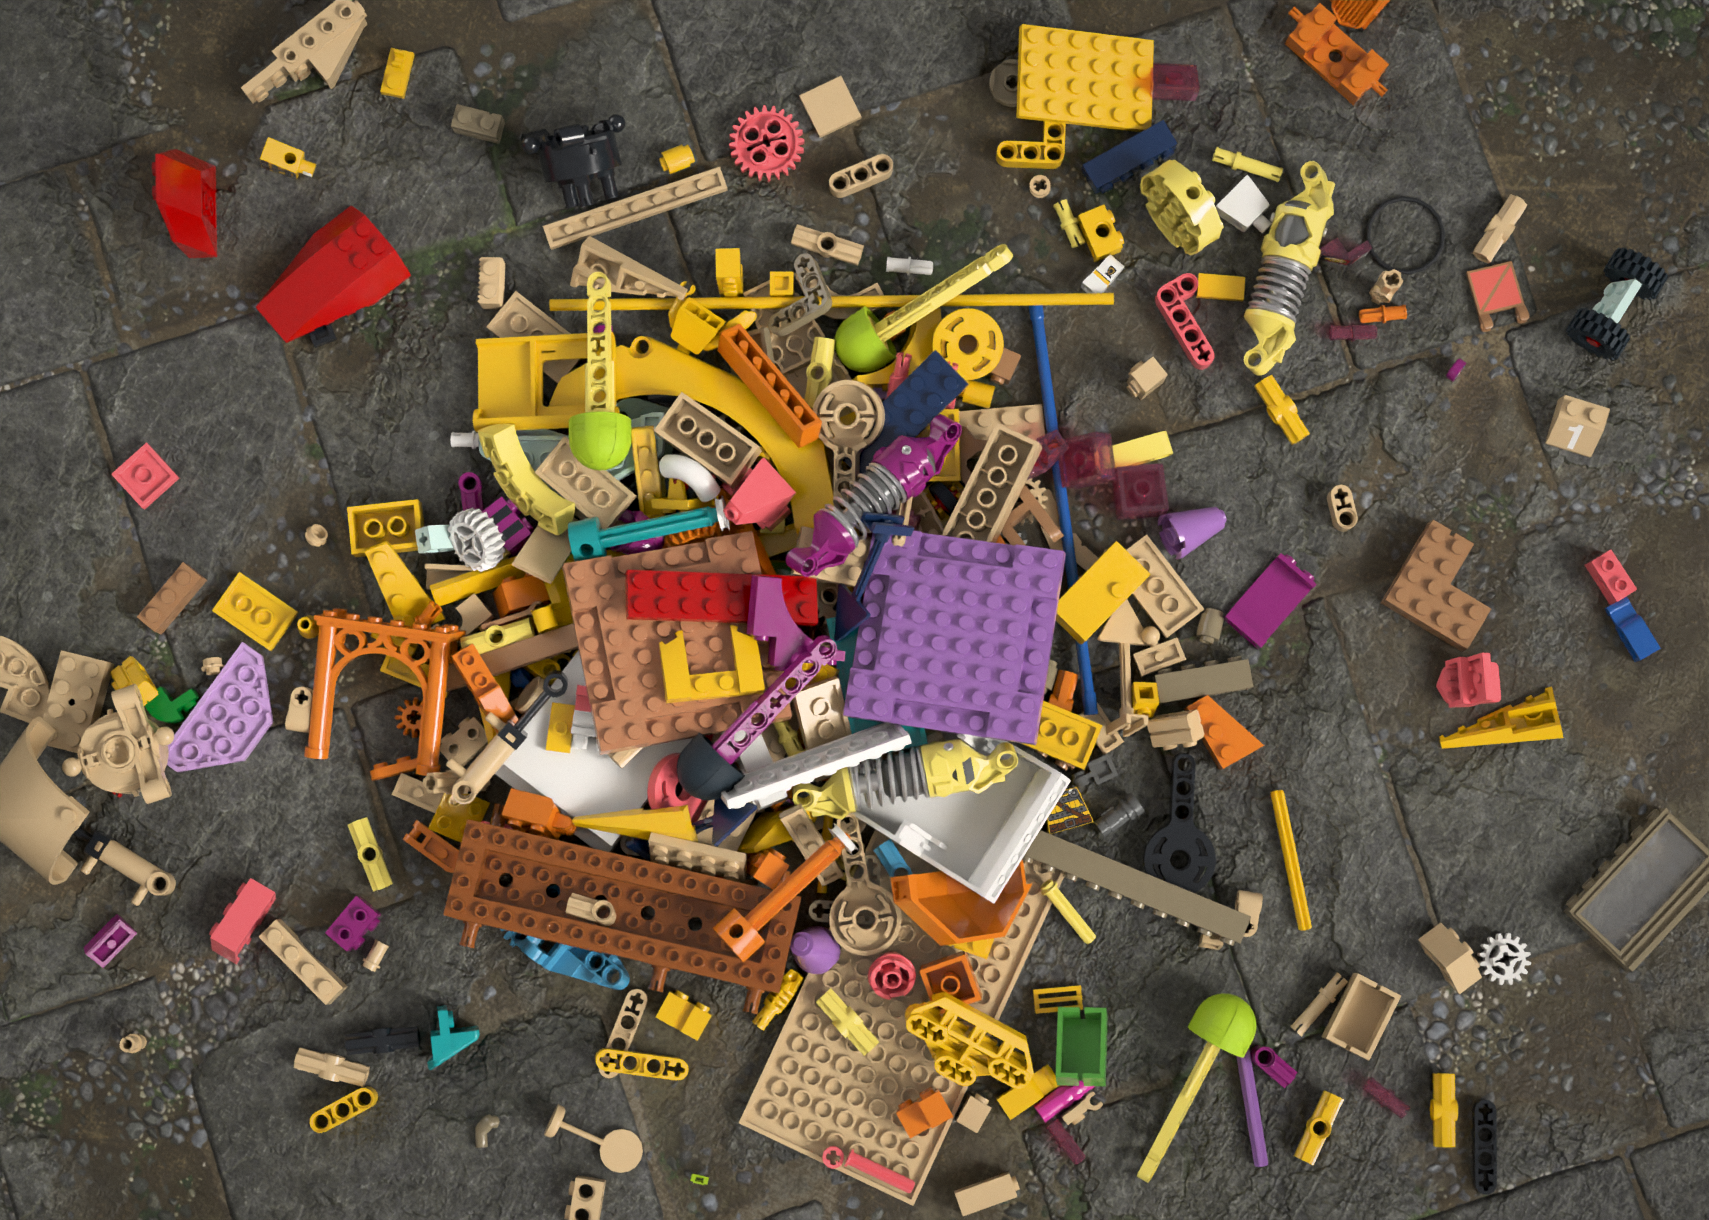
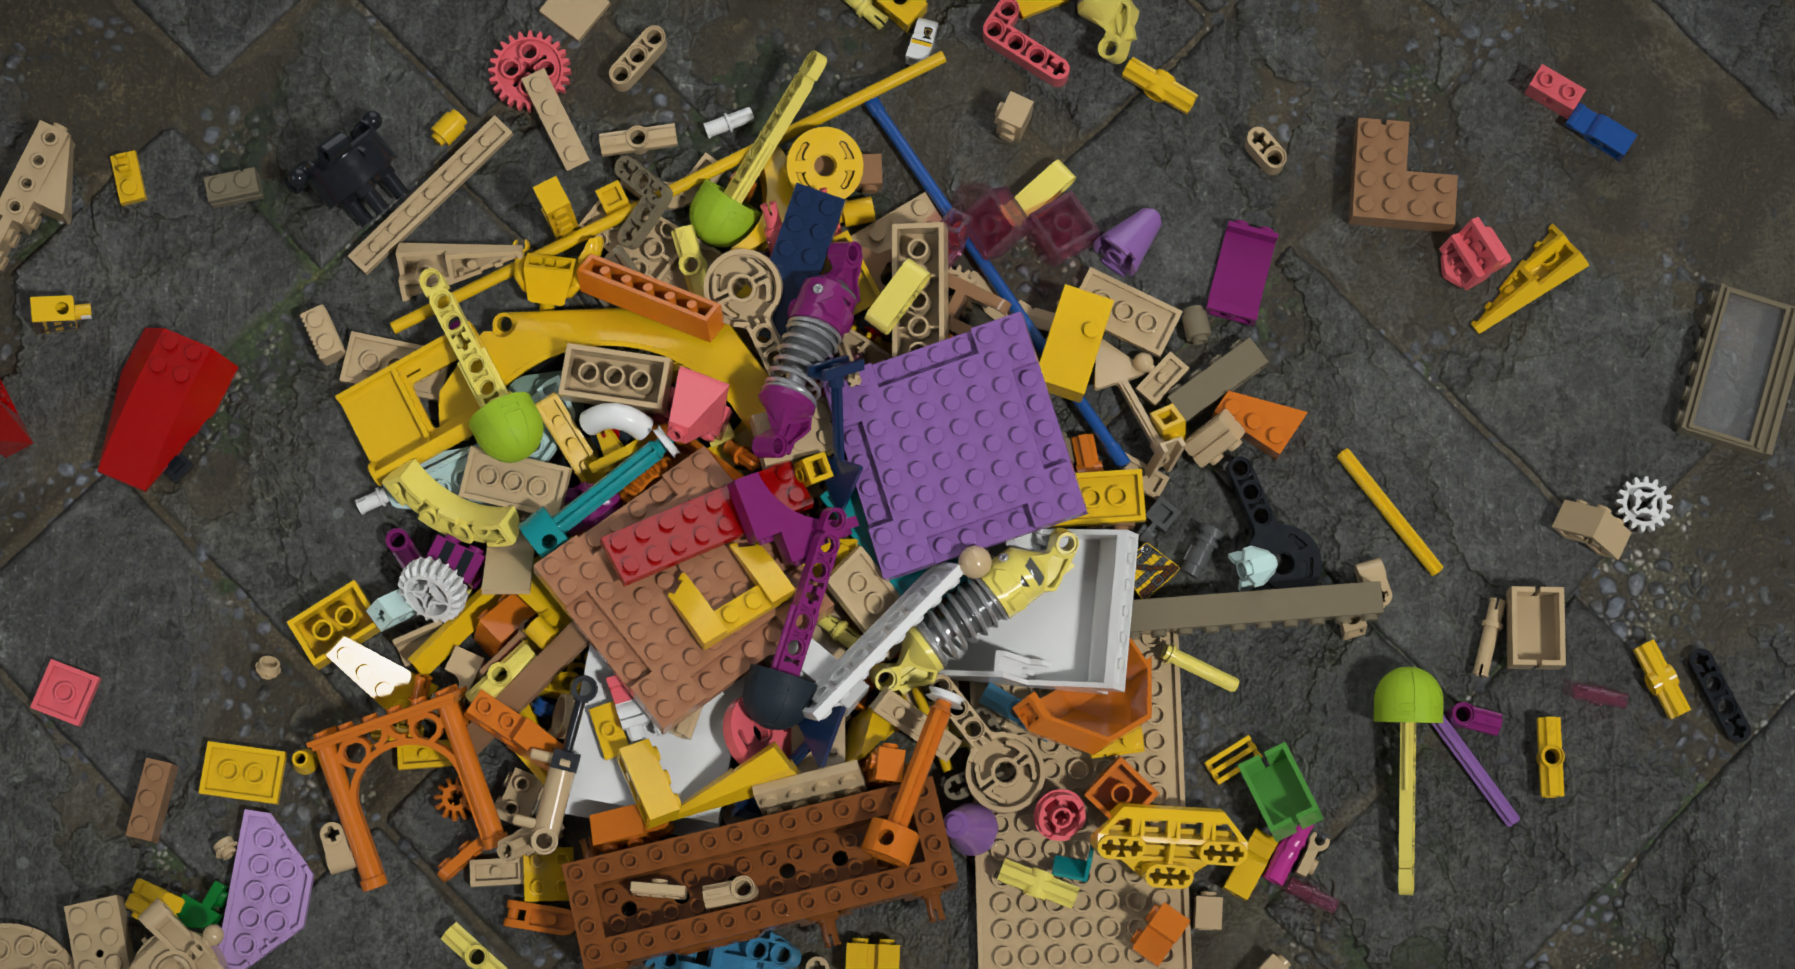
camera: 25 degrees left, 5 degrees down
(536, 877) = (658, 888): none -> tan plate
(570, 787) = (649, 783): none -> yellow brick
(767, 194) = (555, 119): none -> tan plate
(777, 1002) = (958, 900): yellow hinge -> none
(780, 550) = (741, 455): none -> orange axle
(826, 595) = (807, 471): none -> yellow brick
(881, 1022) = (1073, 868): none -> teal bracket
(923, 739) = (975, 562): none -> tan piece
(970, 486) = (897, 296): none -> light yellow beam
(1153, 852) = (1253, 566): none -> light aqua brick

